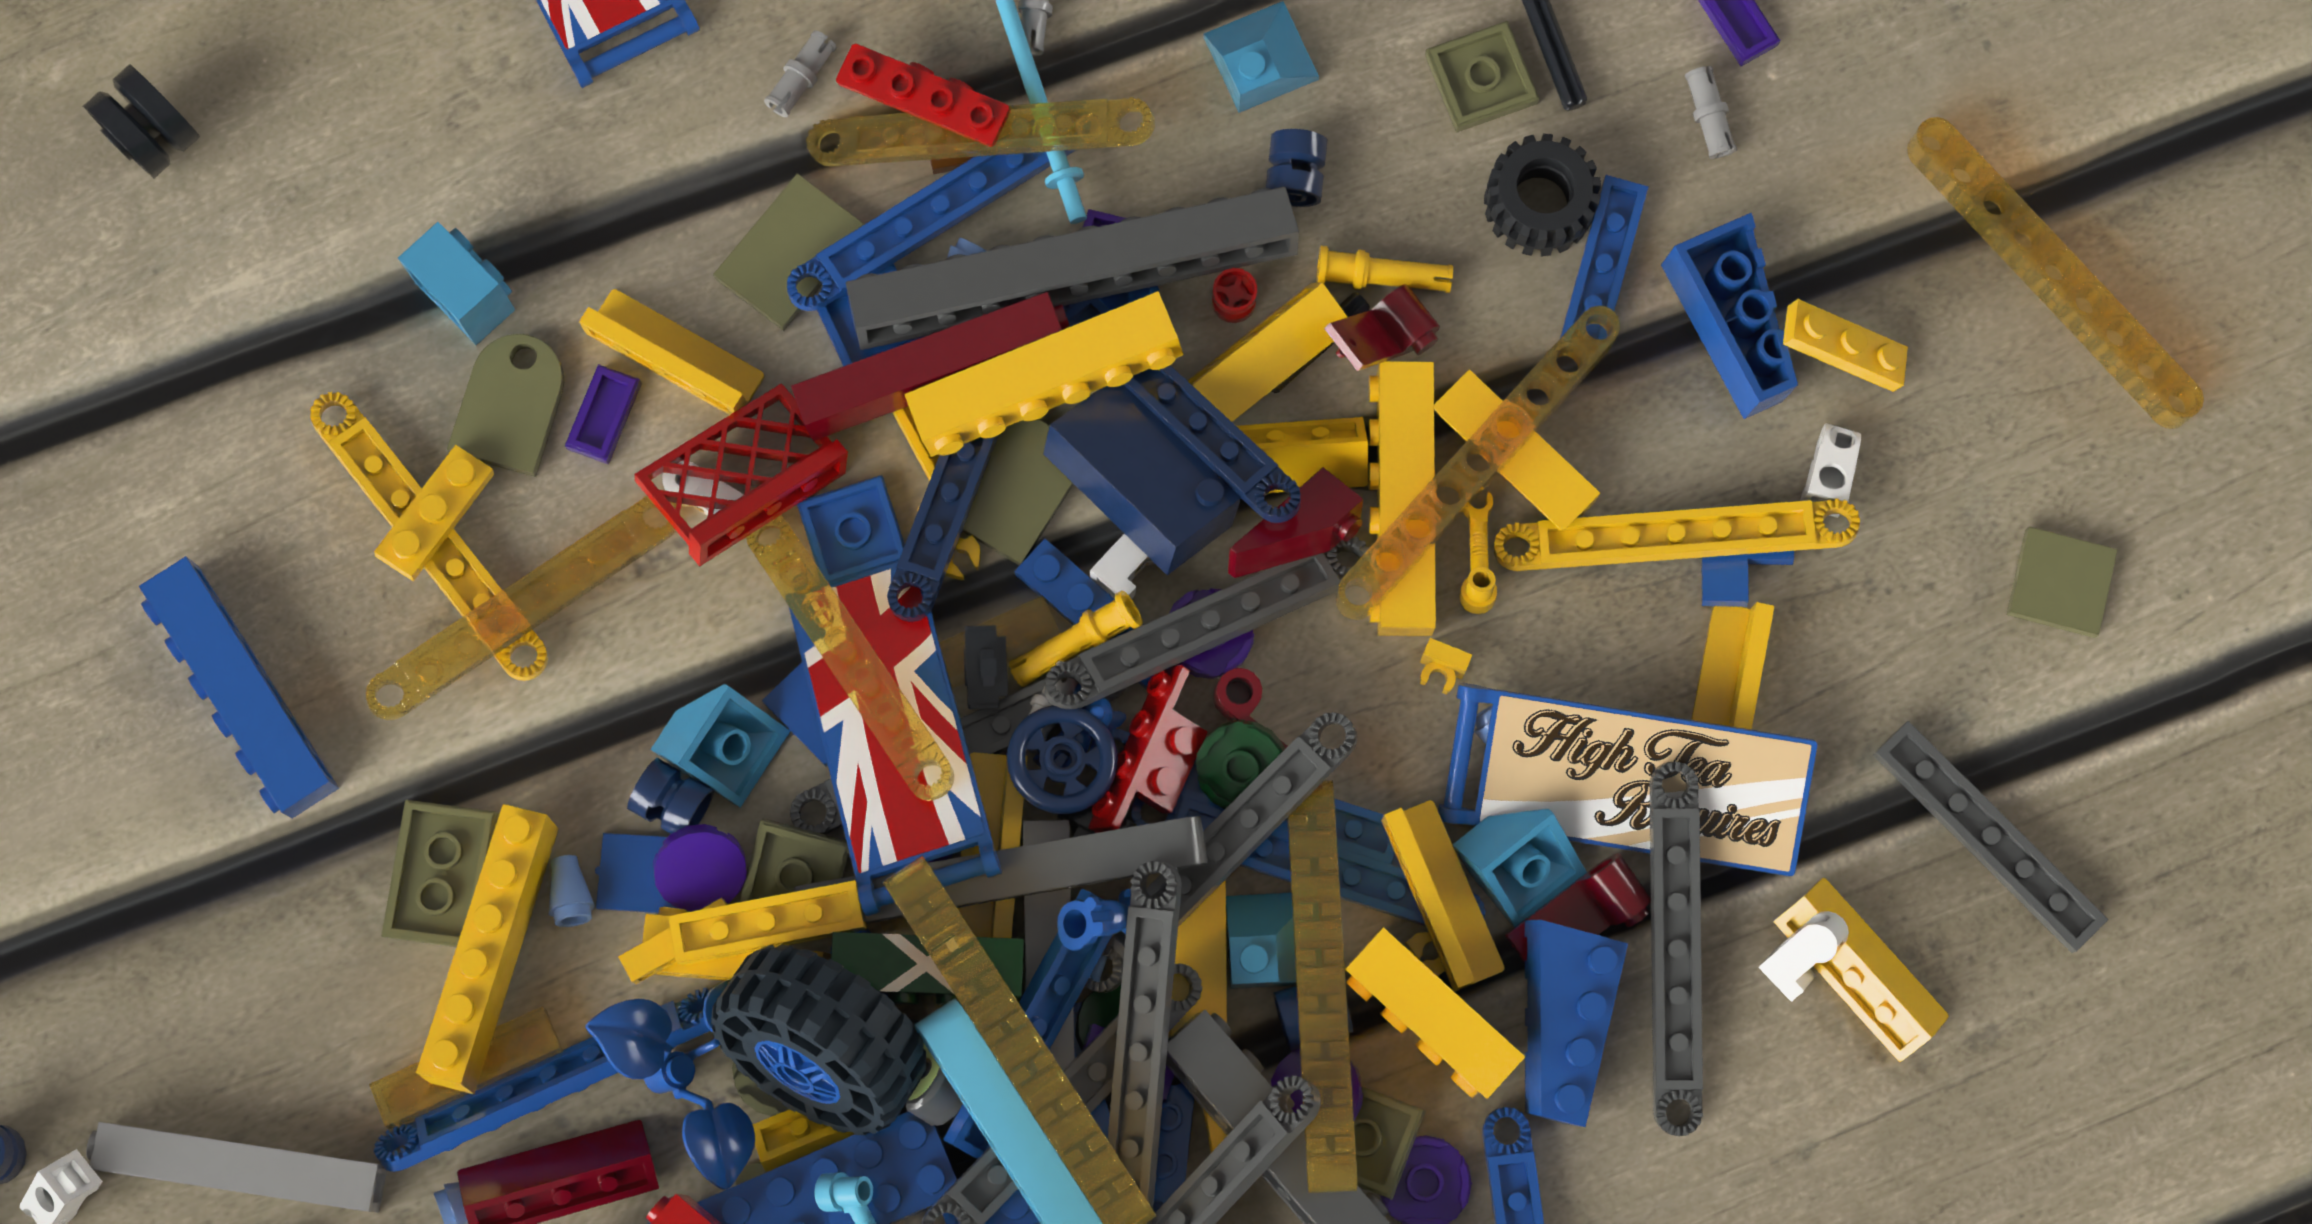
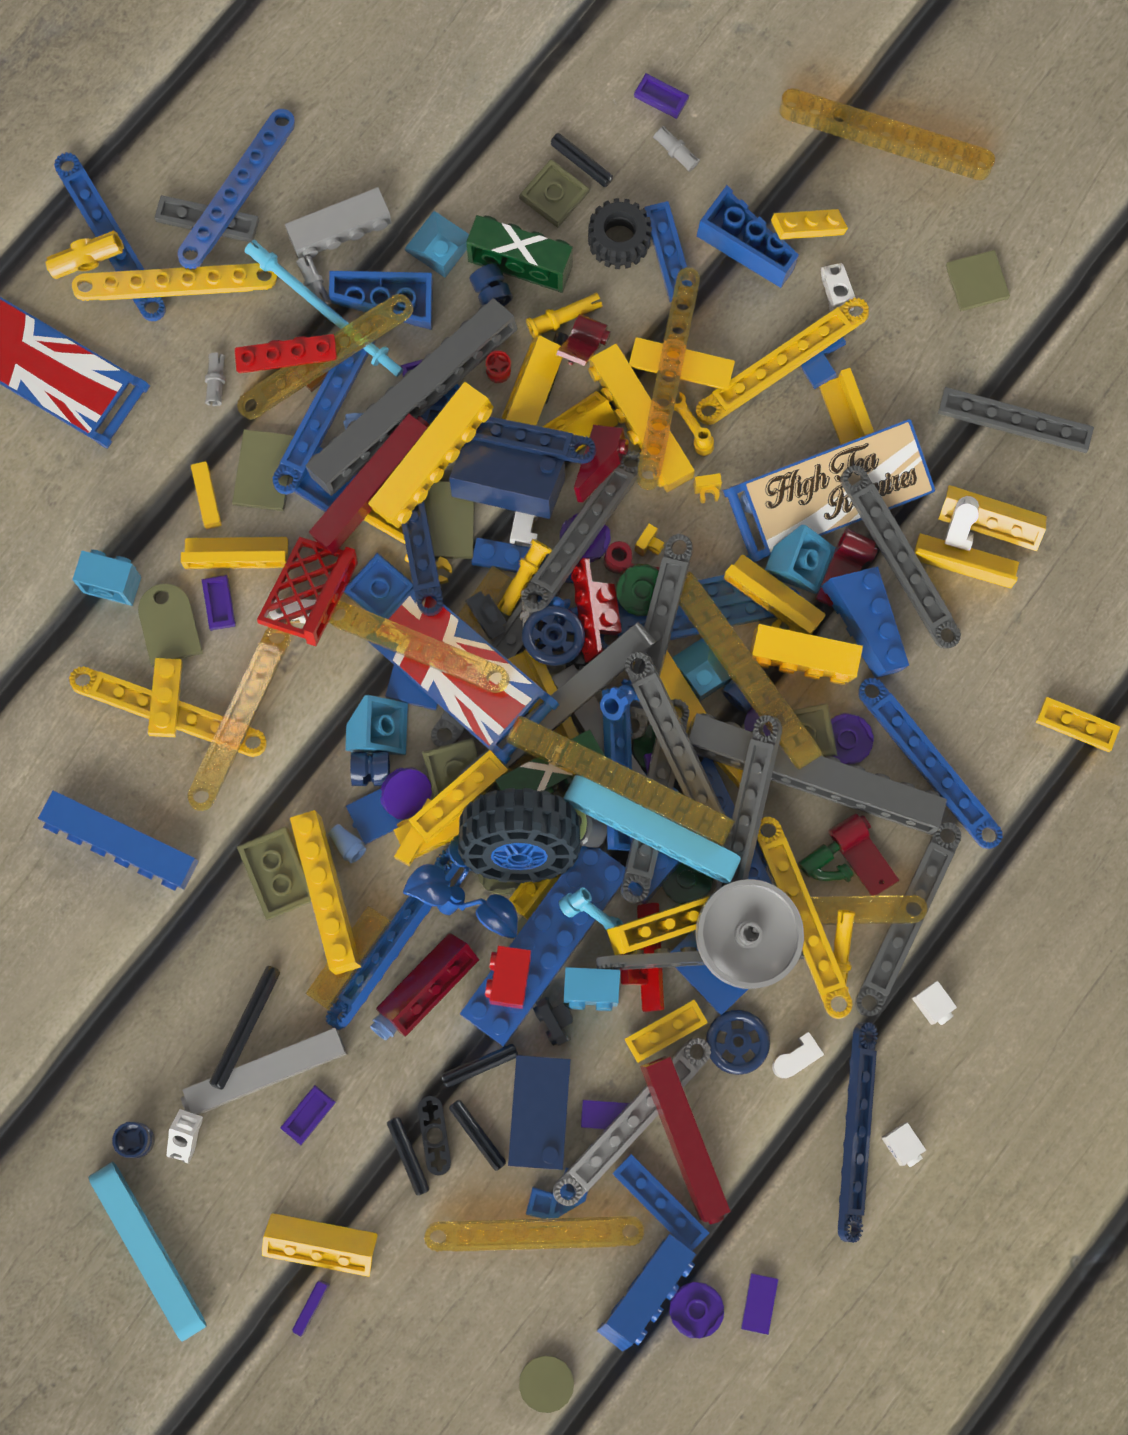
camera: 30 degrees left, 0 degrees up
(246, 1083) = (244, 1027): none -> black axle
(681, 241) = (206, 495): none -> yellow piece
(1112, 69) = (367, 289): none -> blue wedge
(1301, 695) = (649, 541): none -> yellow tile
(1370, 139) = (520, 253): none -> dark green brick
(1784, 1021) = (969, 563): none -> yellow panel

